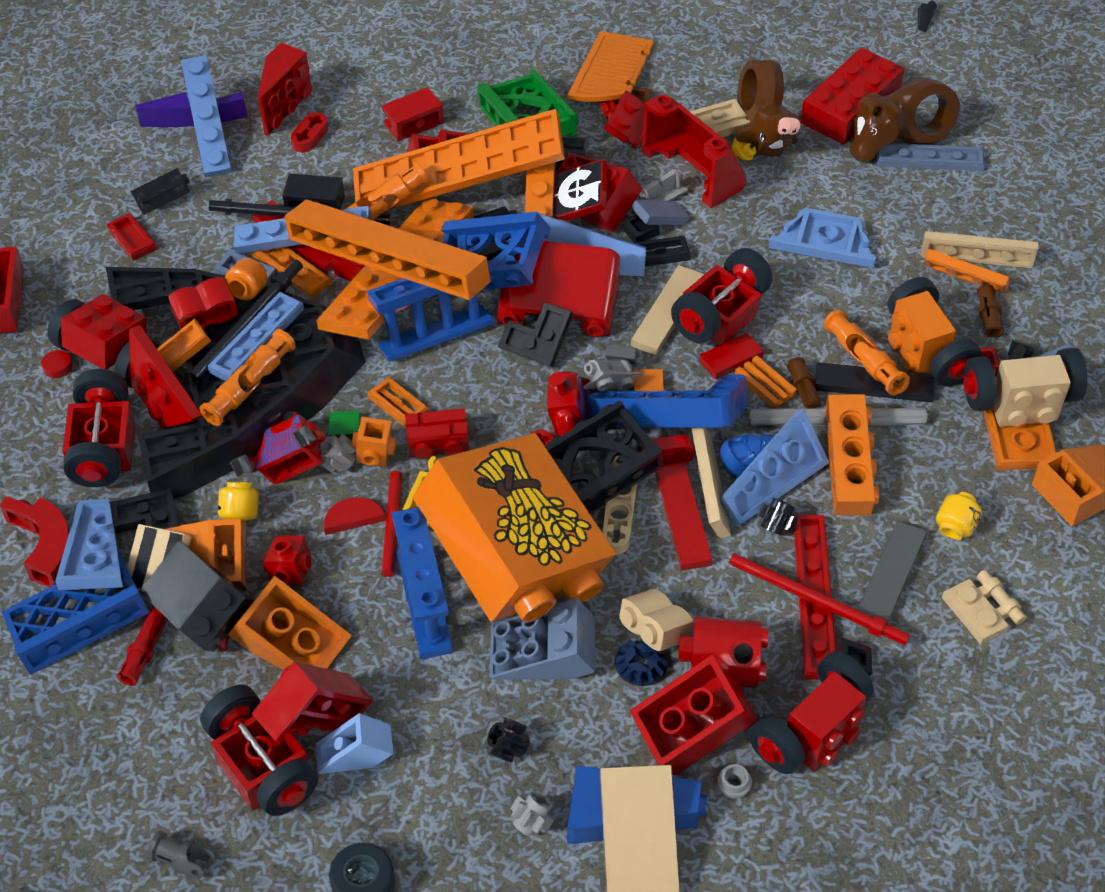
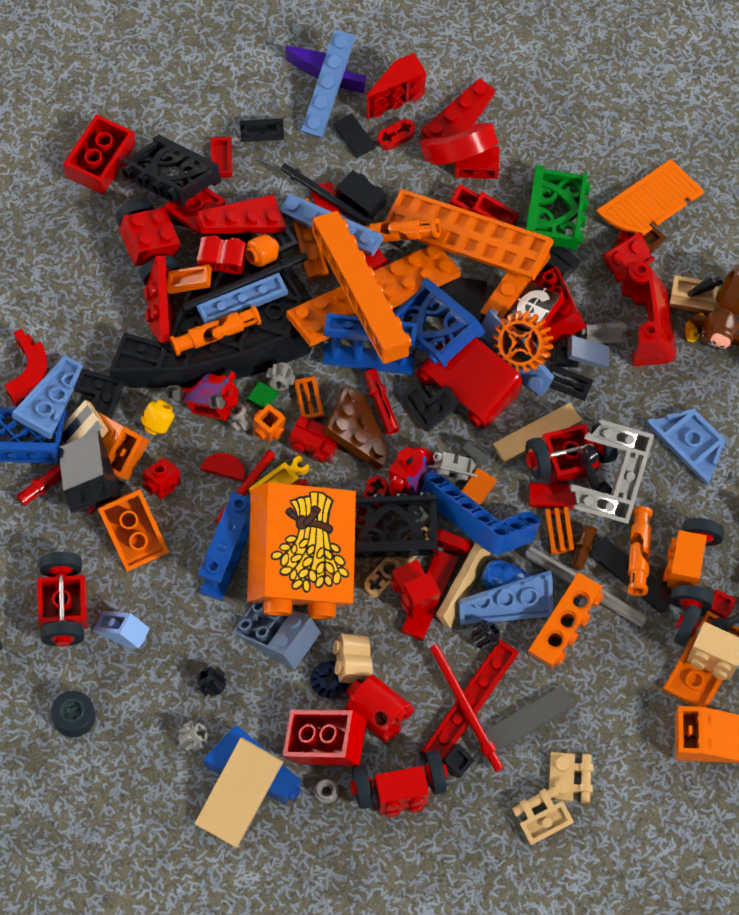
camera: 30 degrees right, 15 degrees up
(56, 364) = (111, 237): red tile -> none
(85, 260) = (144, 166): none -> black fence
(98, 429) = (103, 312): brick -> none
(136, 278) = (187, 214): none -> red tile
(197, 265) = (247, 216): none -> red wing
(265, 153) = (354, 135): none -> black tile
(310, 699) = (110, 586): red wedge -> none
(352, 393) = (280, 376): none -> light grey gear
(363, 92) = (461, 112): none -> red wing
(385, 100) = (459, 146): none -> red arch
(474, 397) = (356, 428): none -> reddish brown plate
(488, 367) = (381, 401): none -> red pin
(582, 216) = (528, 347): none -> orange gear
(670, 509) = (416, 589): none -> red brick
(726, 103) = (706, 285): none -> black bar
(747, 288) = (589, 456): none -> black bar
(787, 248) = (622, 498): none -> light grey wedge
(958, 515) = (603, 707): yellow head -> none
(1003, 662) = (546, 822): none -> tan plate

